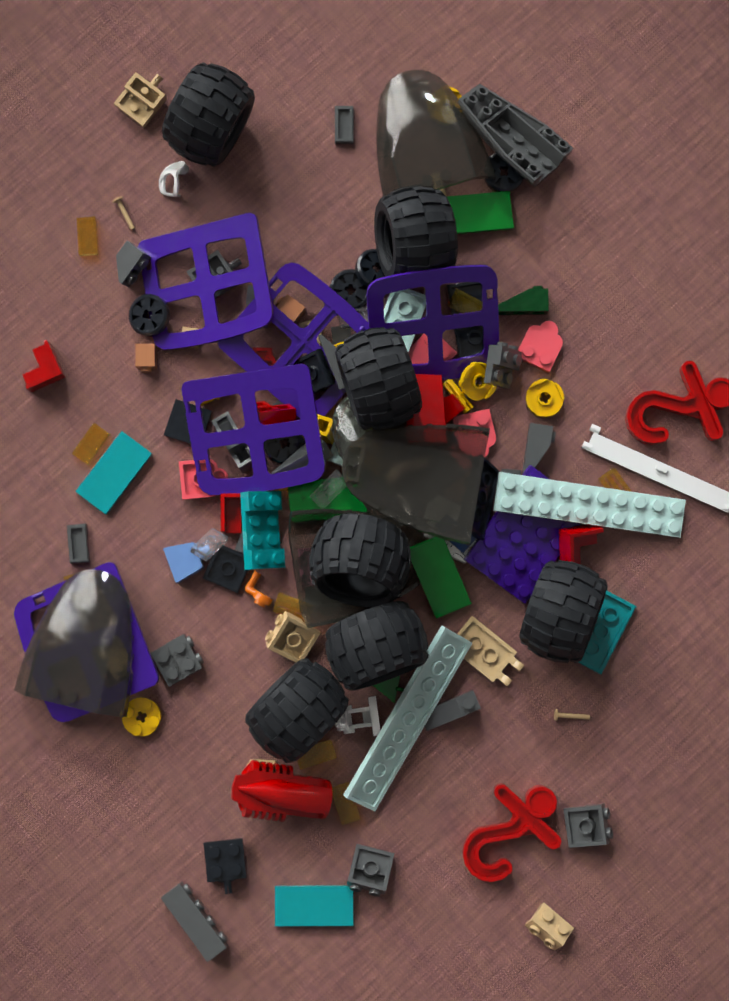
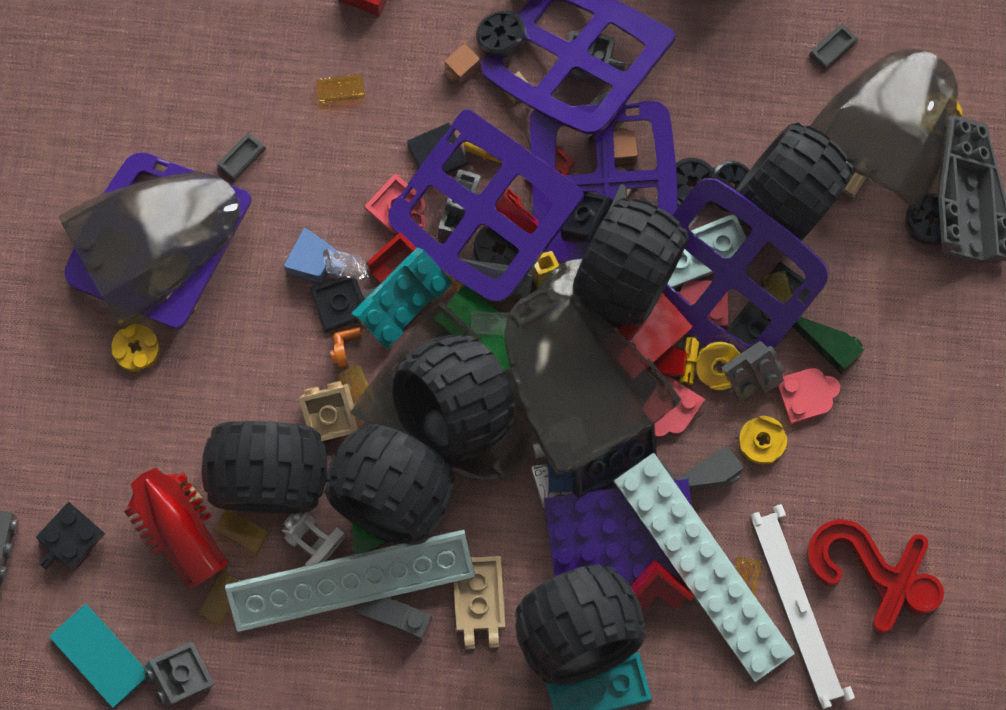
camera: 45 degrees right, 10 degrees down
(114, 472) = (333, 130): teal tile -> none
(177, 659) = (216, 332): dark grey plate -> none
(439, 576) = (507, 490): green tile -> none
(482, 212) = (869, 228): green tile -> none

